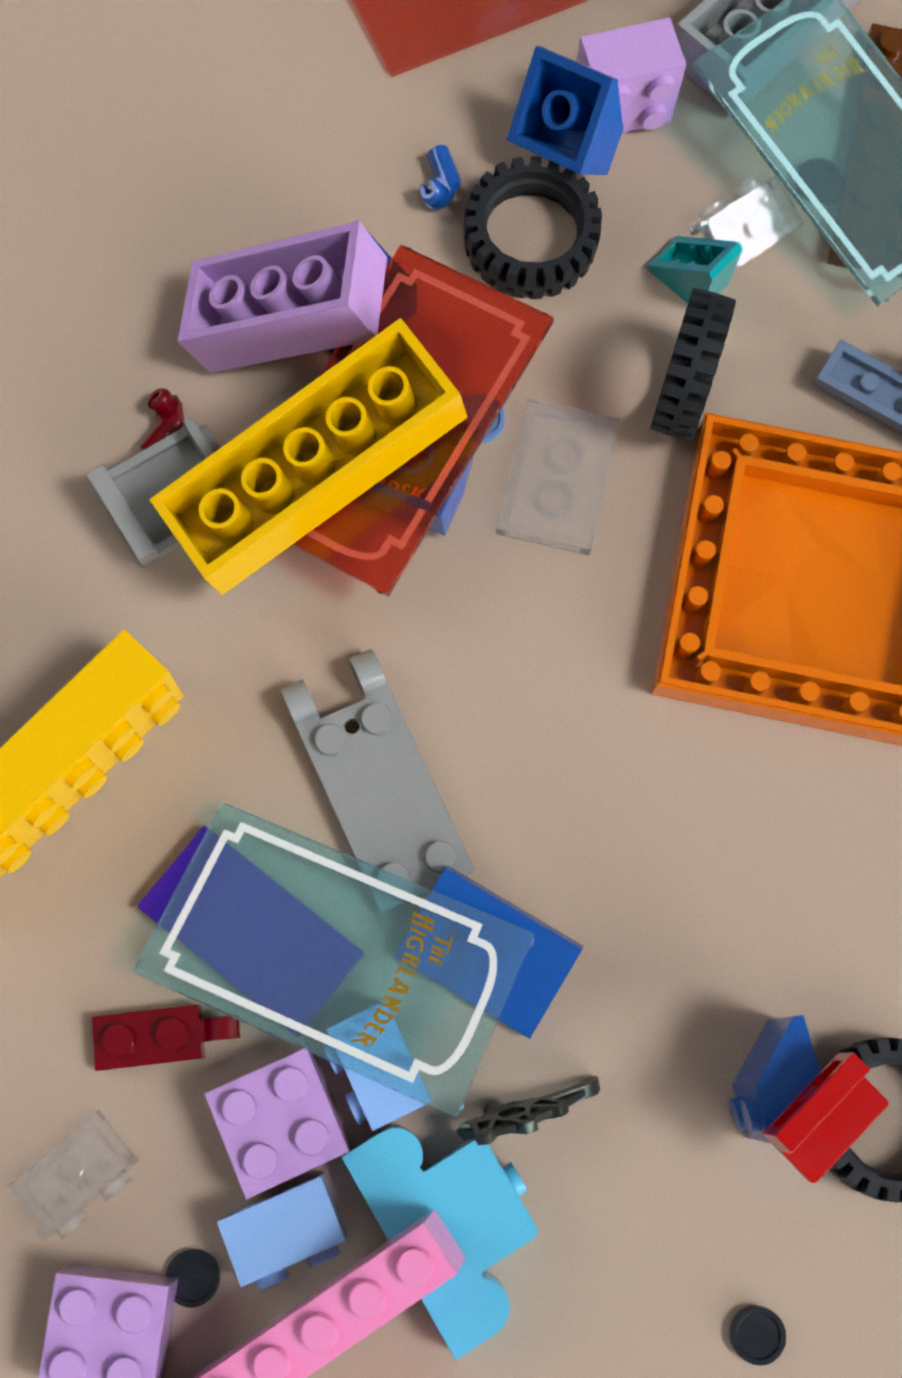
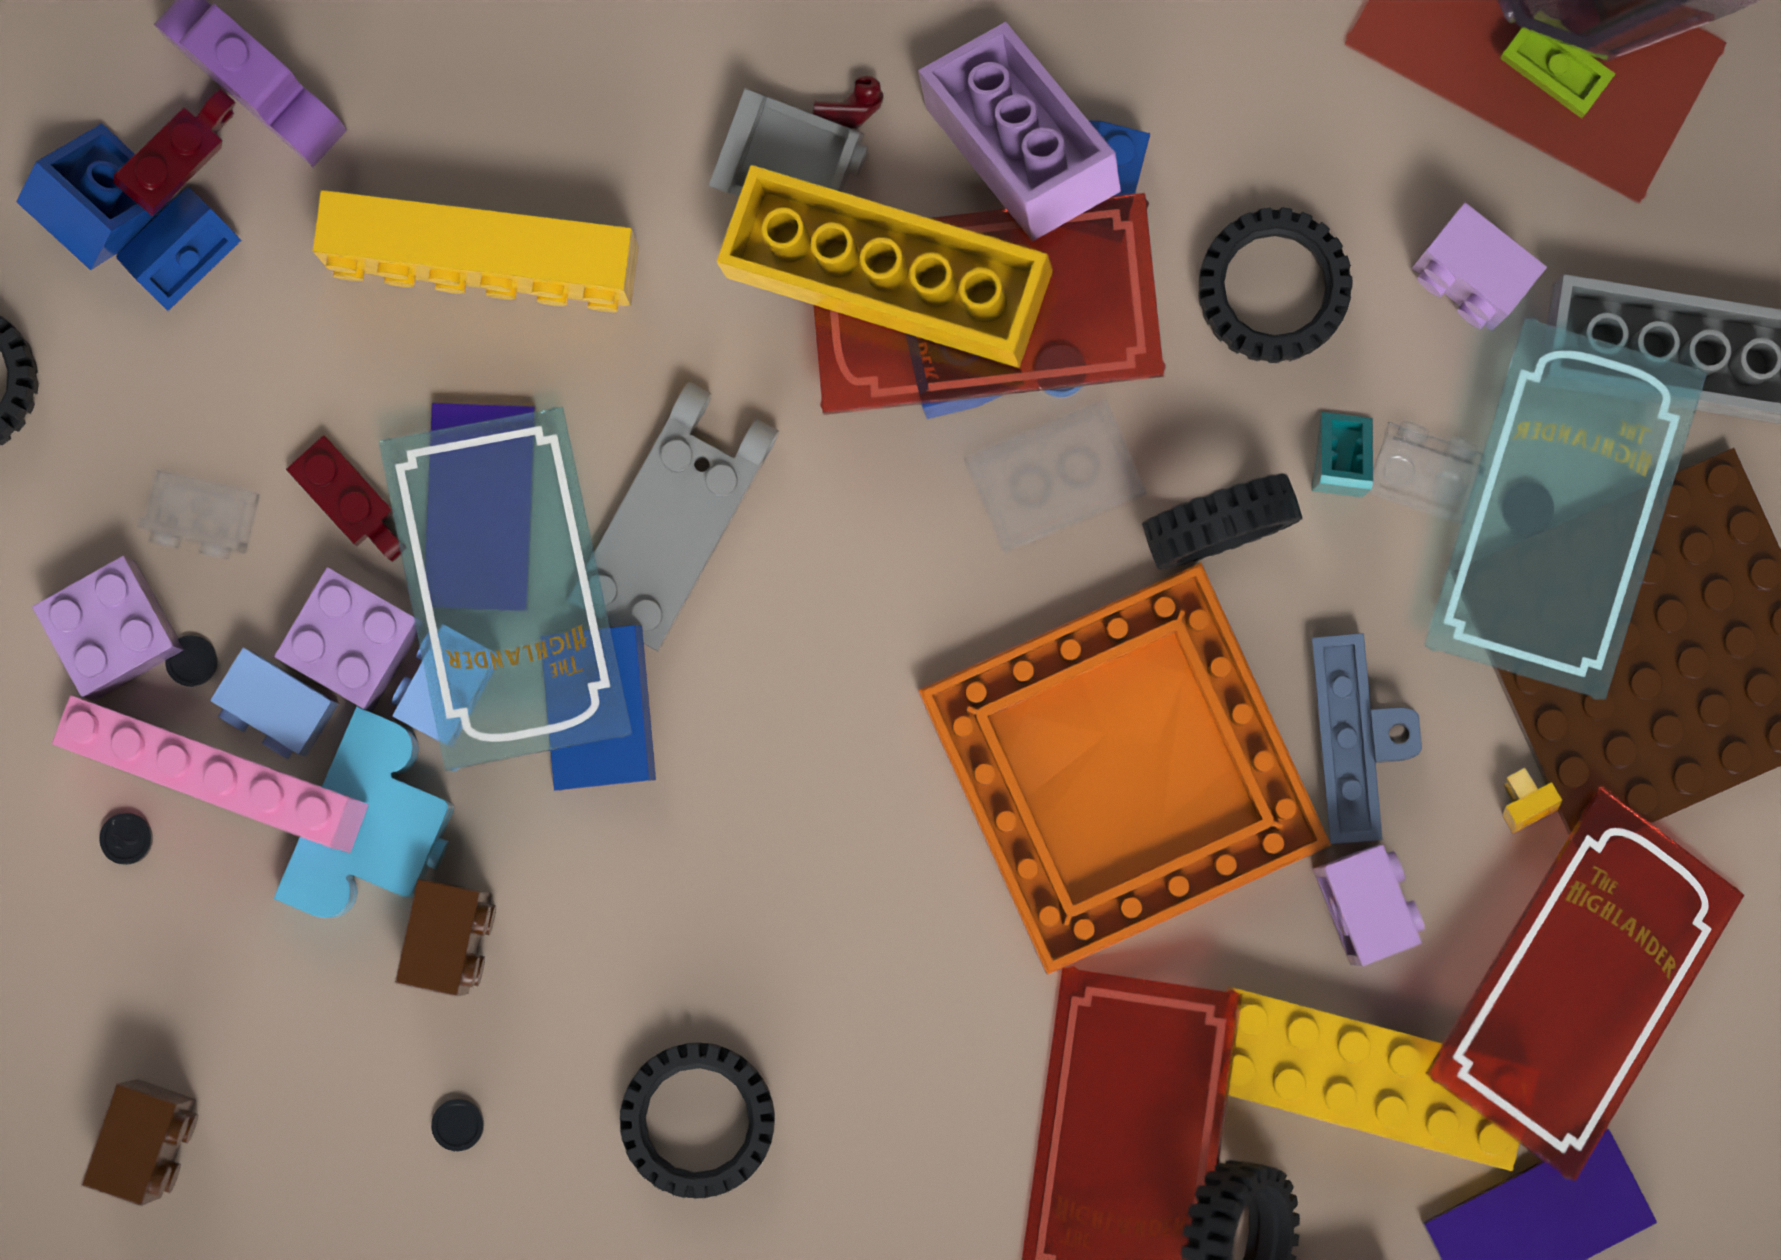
camera: 60 degrees right, 10 degrees up
(444, 183) = (1265, 174): blue arm -> none
(523, 1115) = (485, 821): pearl dark grey piece -> none
(568, 114) = (1385, 244): blue slope -> none
(603, 1234) = (445, 938): none -> reddish brown brick
(772, 1075) = (650, 1010): blue slope -> none
(827, 1117) = (642, 1050): red panel -> none

